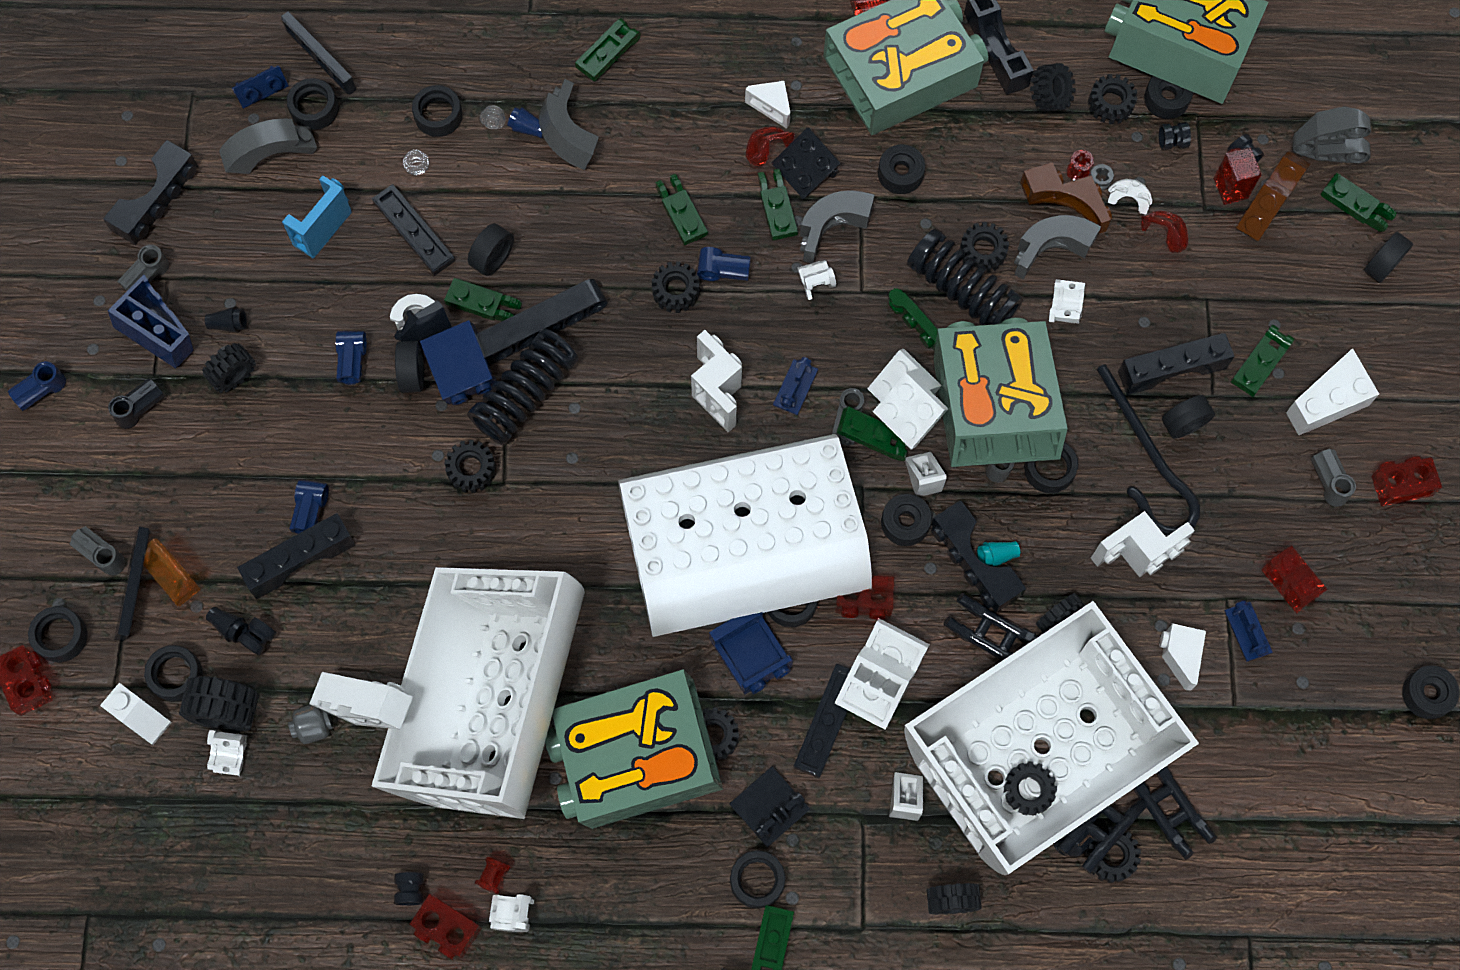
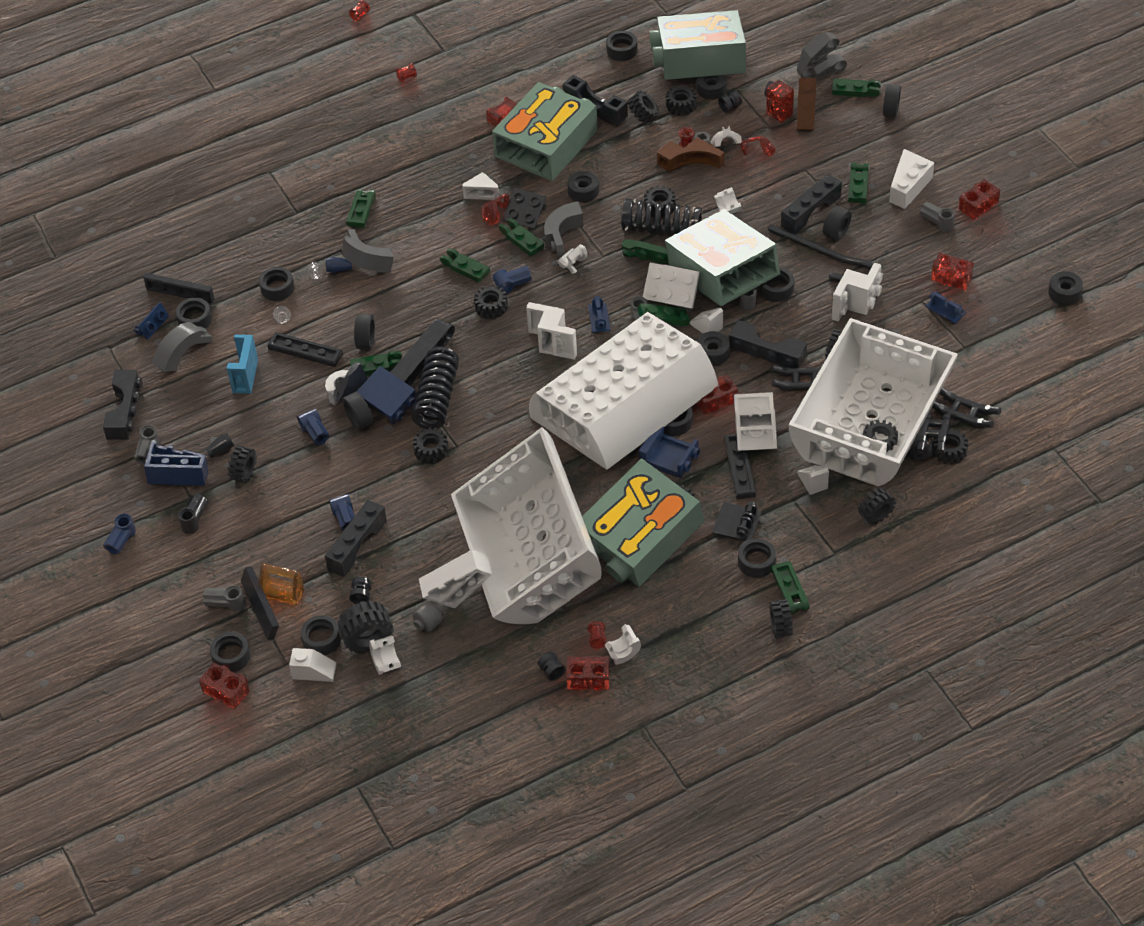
camera: 25 degrees left, 20 degrees down
(227, 624) = (336, 594): black cone -> none
(997, 553) = (778, 336): teal cone -> none
(1055, 232) = (698, 174): dark grey arch -> none
(1183, 653) = (917, 329): white slope -> none

